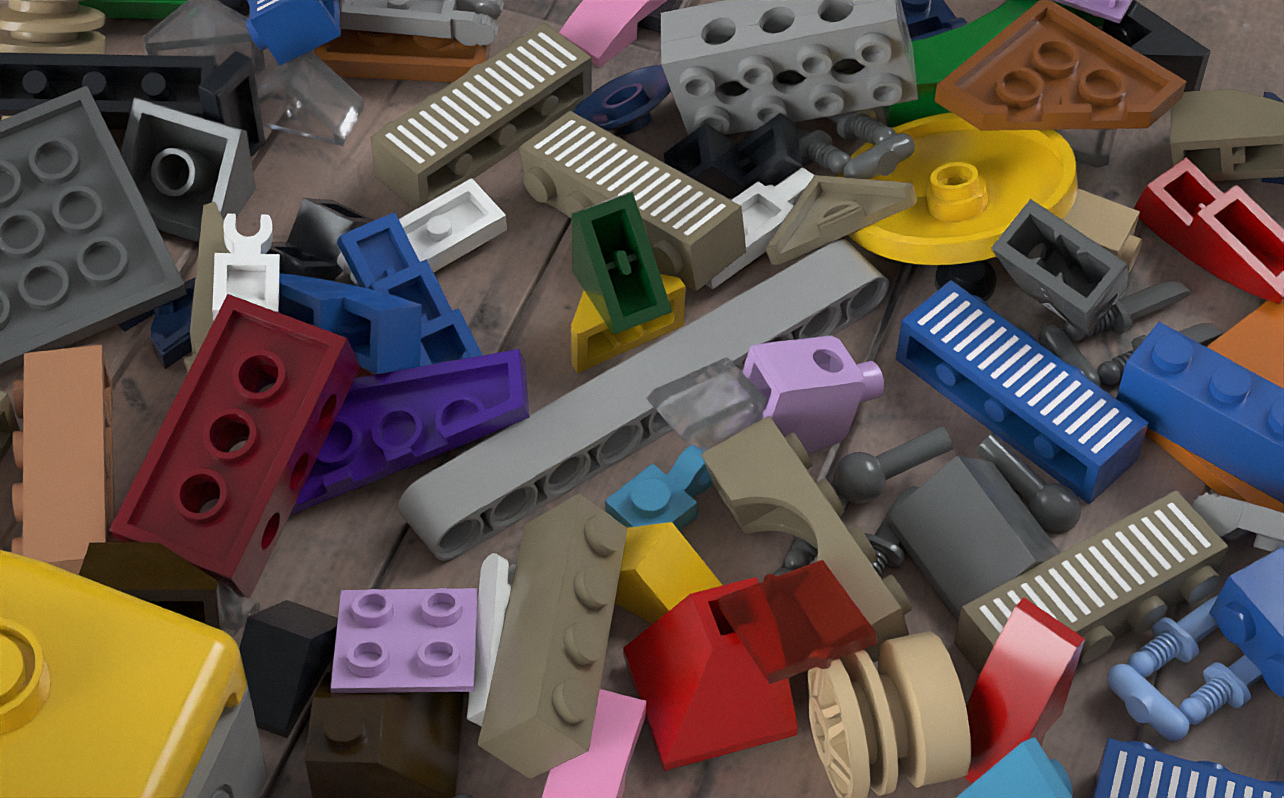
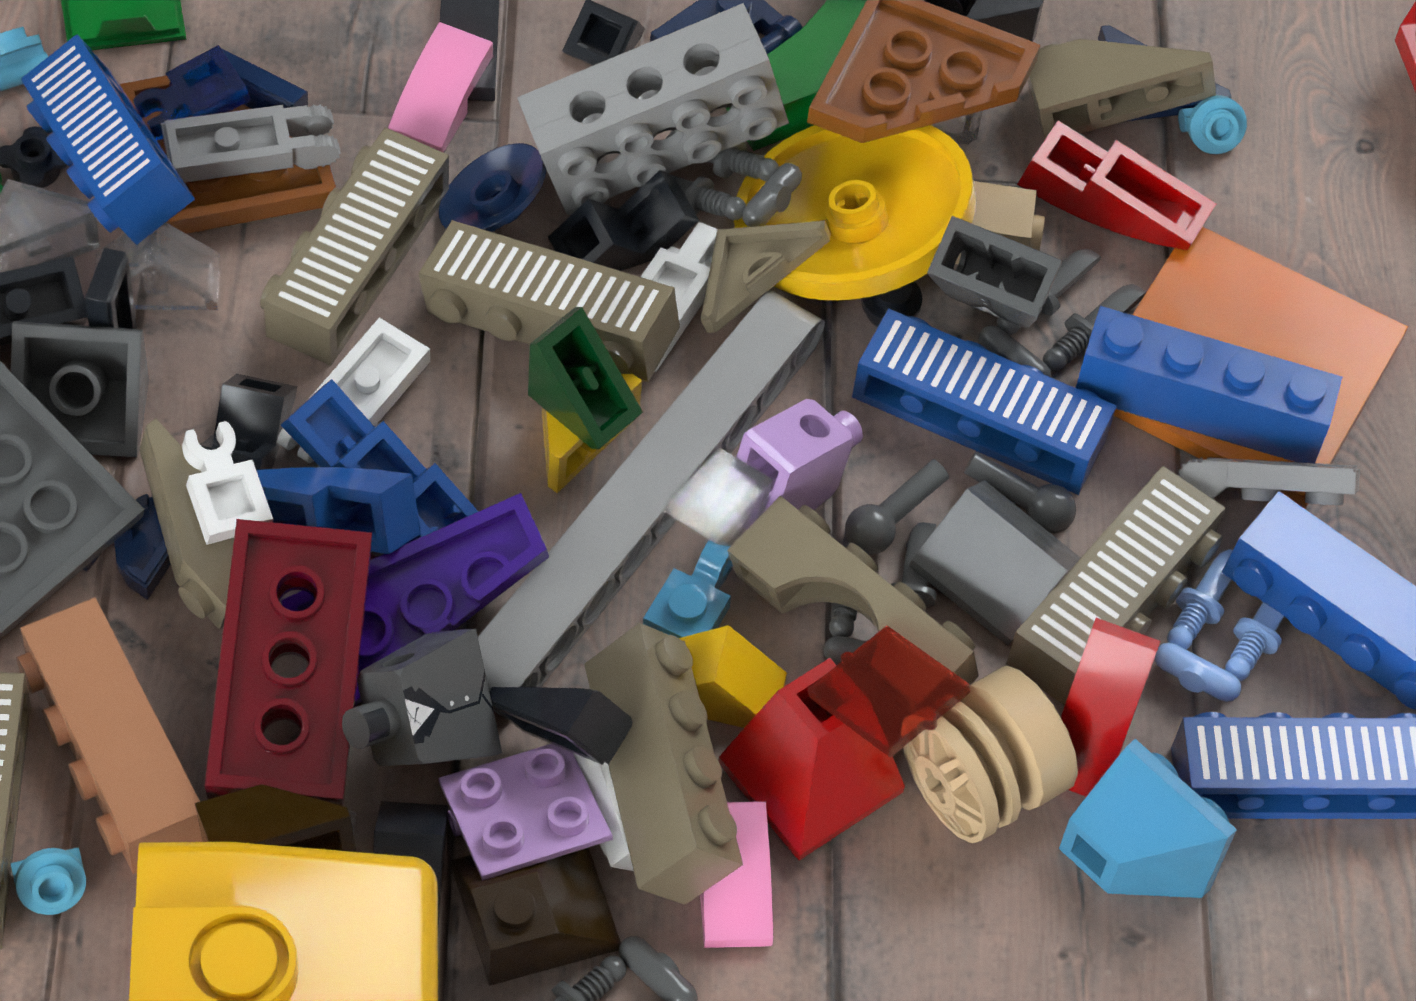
camera: 25 degrees left, 5 degrees up
(346, 516) = (425, 703): none -> dark grey torso
(474, 562) = (566, 717): none -> black slope

